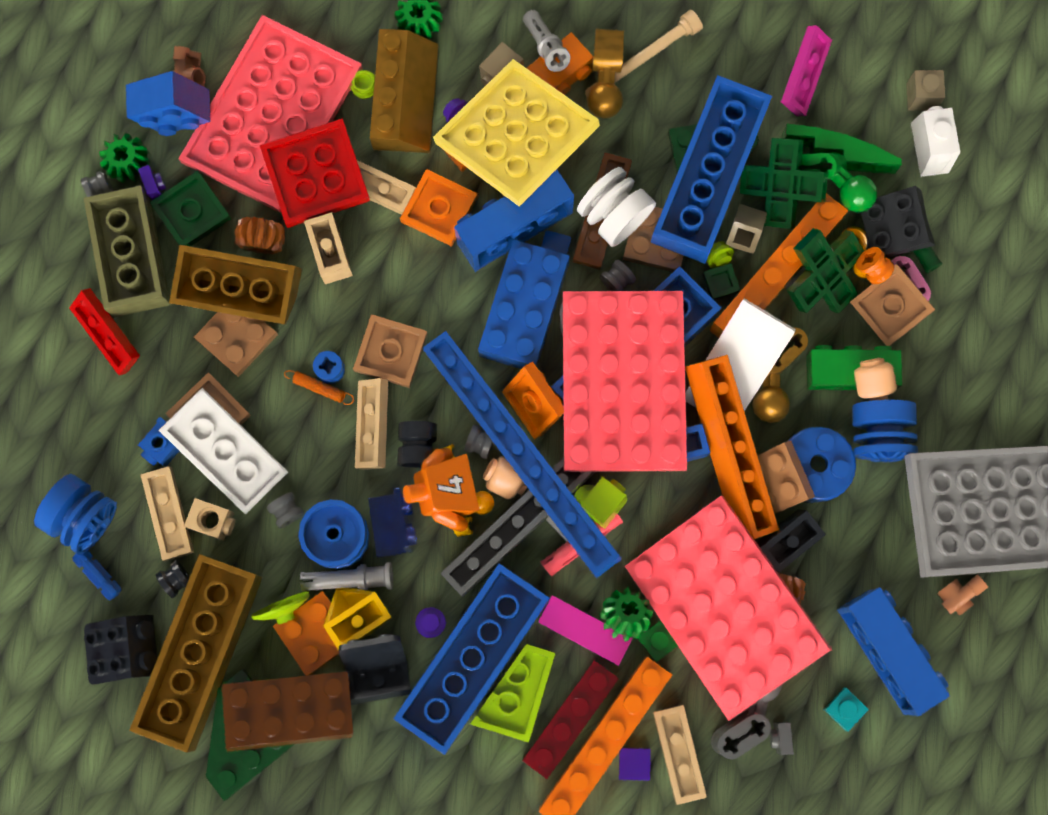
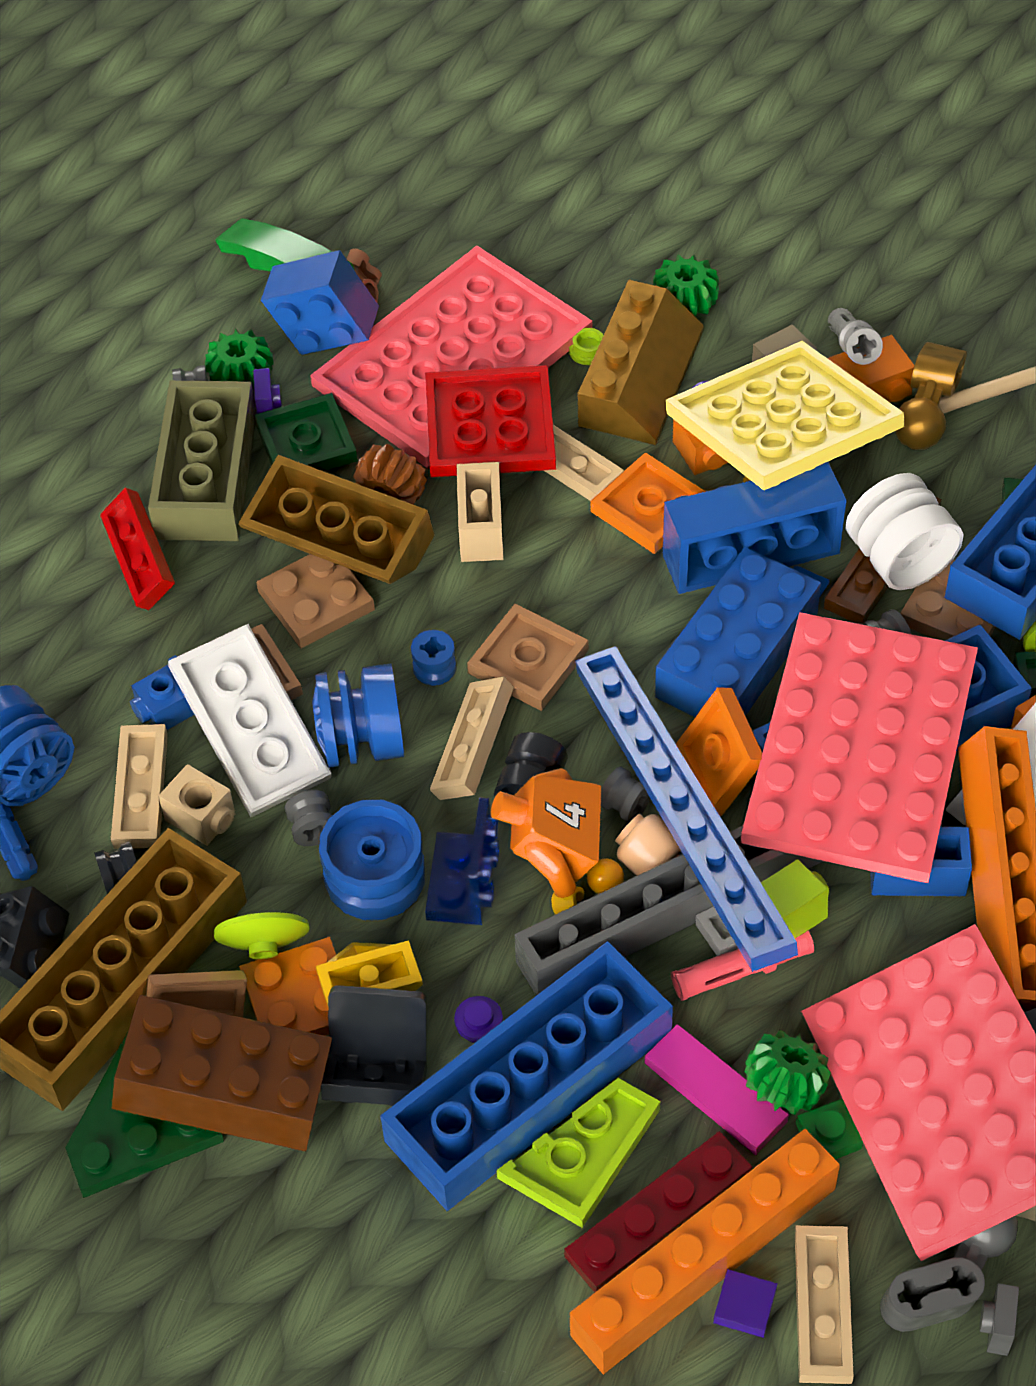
camera: 15 degrees right, 25 degrees down
(124, 55) = (267, 244): none -> slope
(253, 660) = (211, 991): none -> medium nougat tile
(295, 433) = (358, 715): none -> blue wheel
(319, 387) = (414, 682): orange piece -> none
(362, 577) = (423, 935): light grey pin -> none

